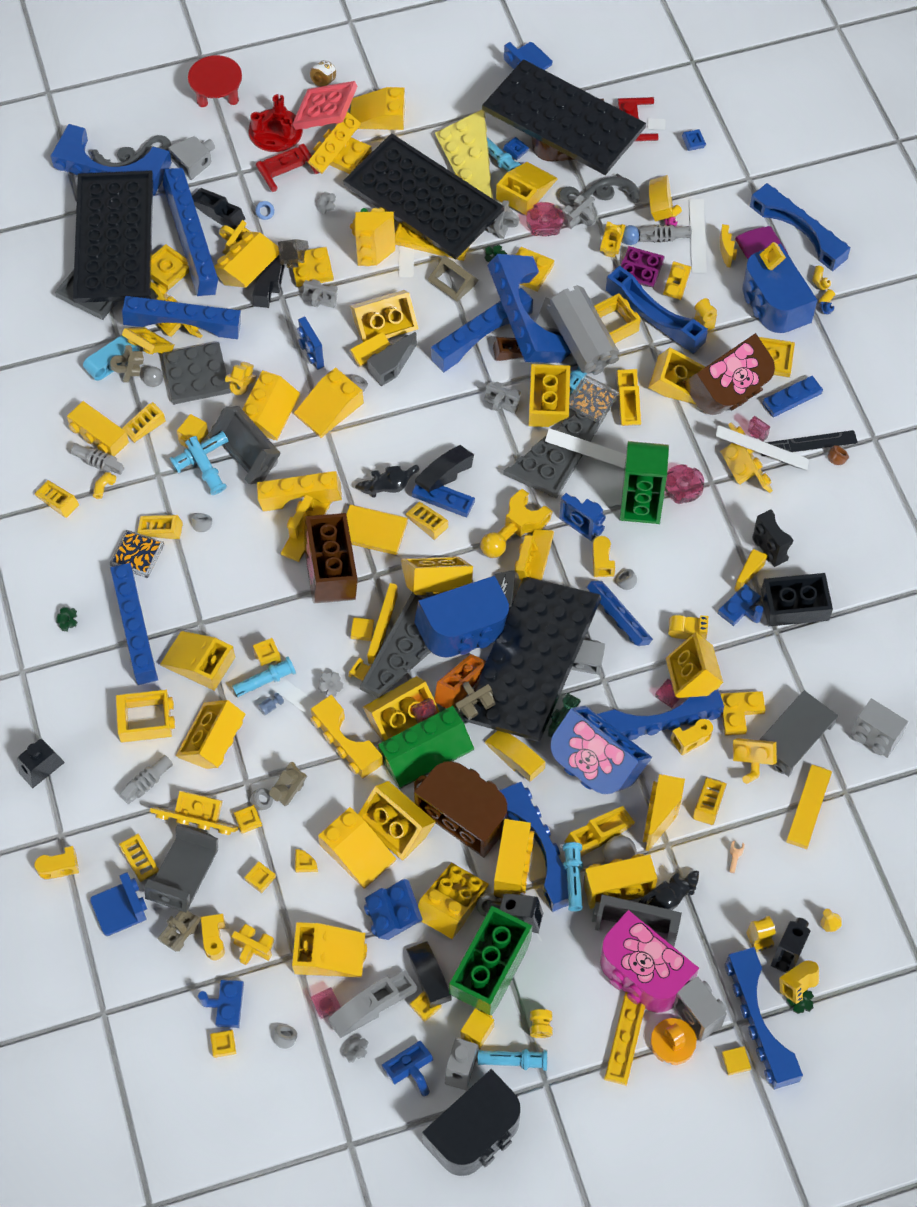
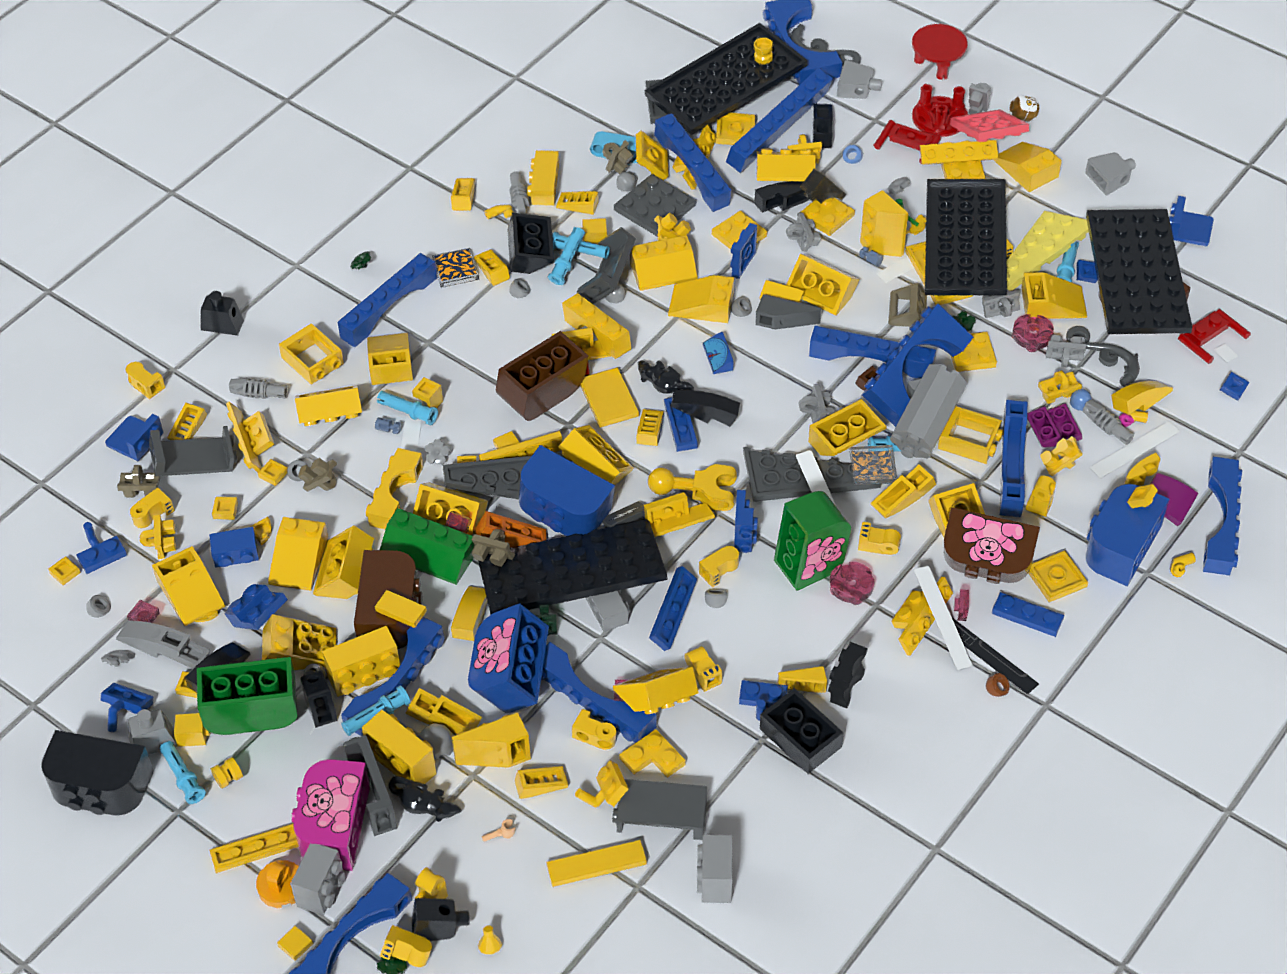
camera: 55 degrees right, 10 degrees down
(118, 191) = (763, 50): none -> yellow wheel
(165, 483) = (529, 243): none -> black slope
(278, 335) = (731, 228): none -> yellow plate
(290, 92) = (979, 98): none -> light grey hips
(311, 892) = (234, 547): none -> blue brick
(383, 267) = (872, 257): none -> sand blue piece
(393, 428) = (718, 354): none -> slope
(433, 68) = (1109, 171): none -> light grey torso
(499, 798) = (400, 609): none -> yellow tile
(663, 435) = (878, 540): none -> yellow leg
(824, 302) = (1157, 582): arm -> none

